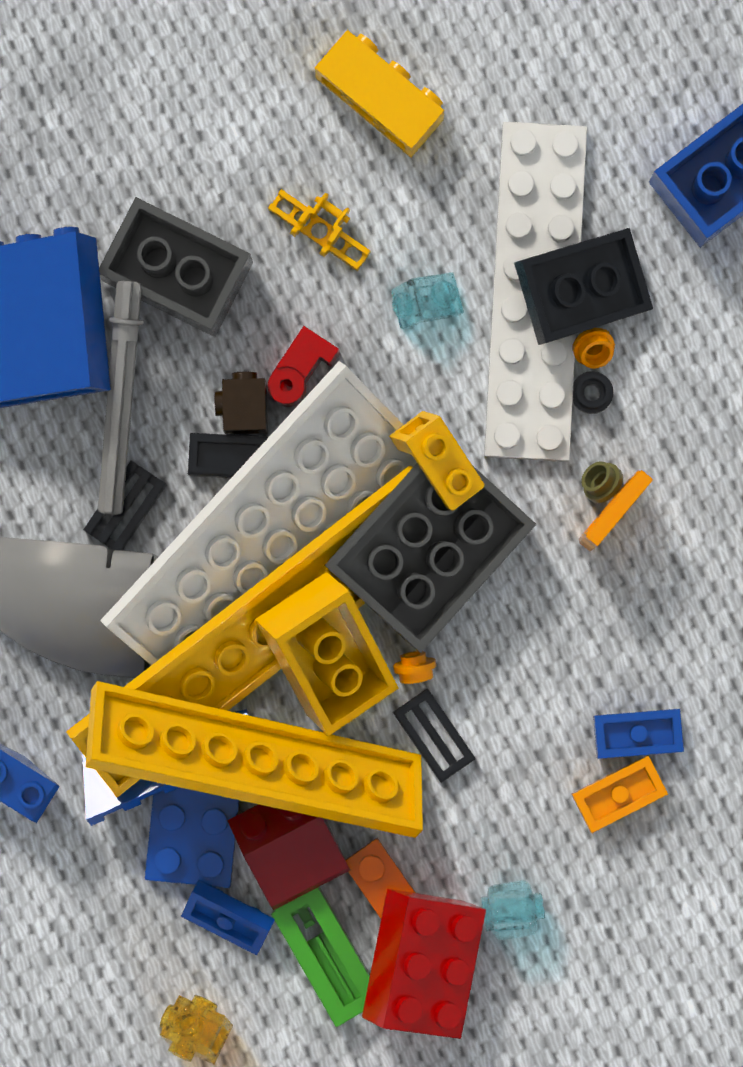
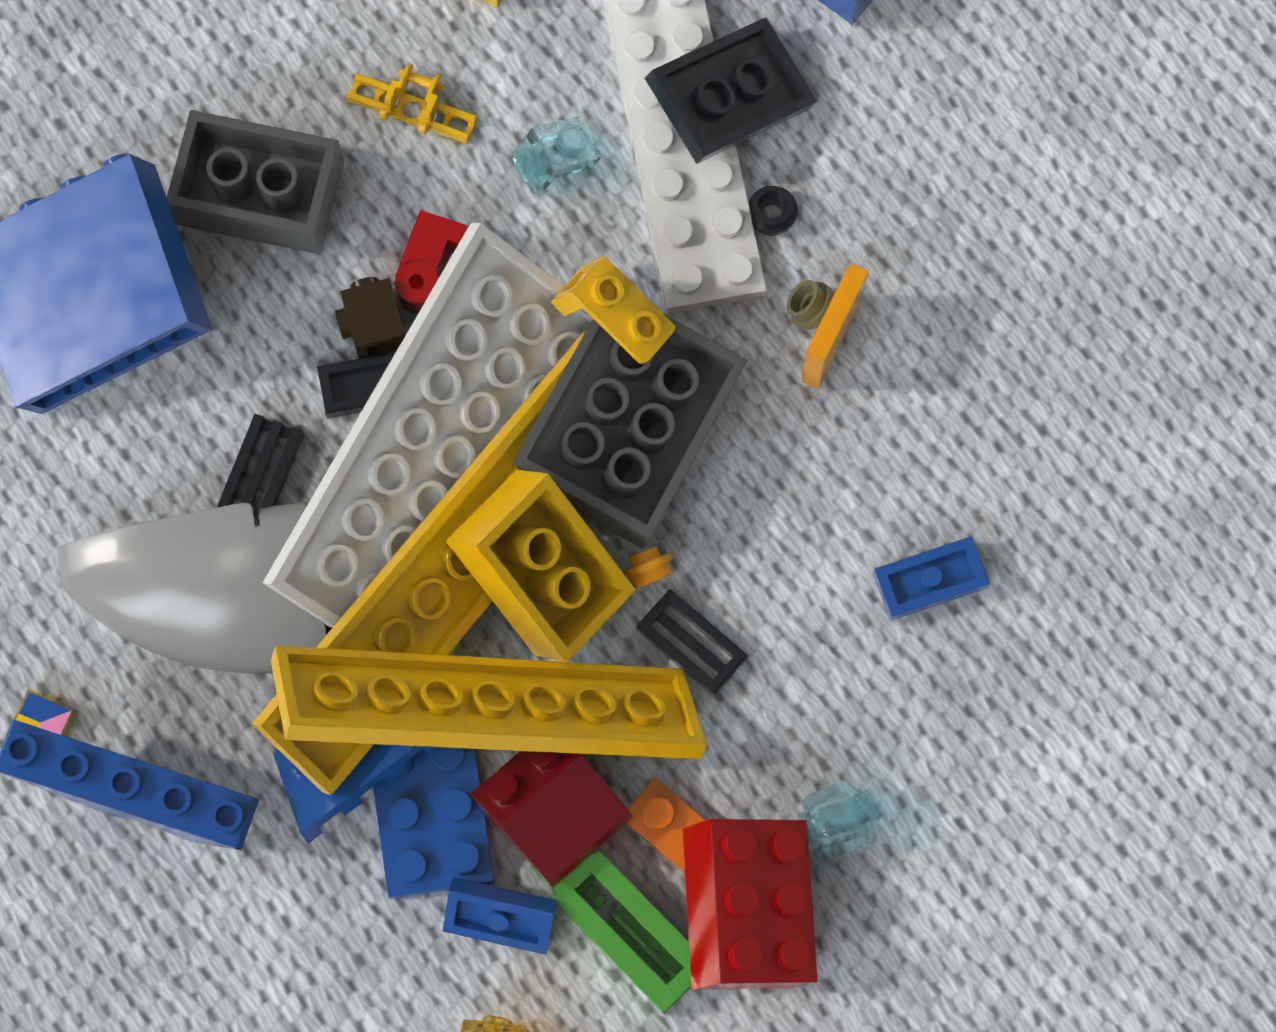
camera: 20 degrees left, 10 degrees down
(120, 397) = (224, 338): light grey axle -> none
(594, 348) = (770, 165): light orange plate -> none
(619, 794) = (928, 653): light orange plate -> none

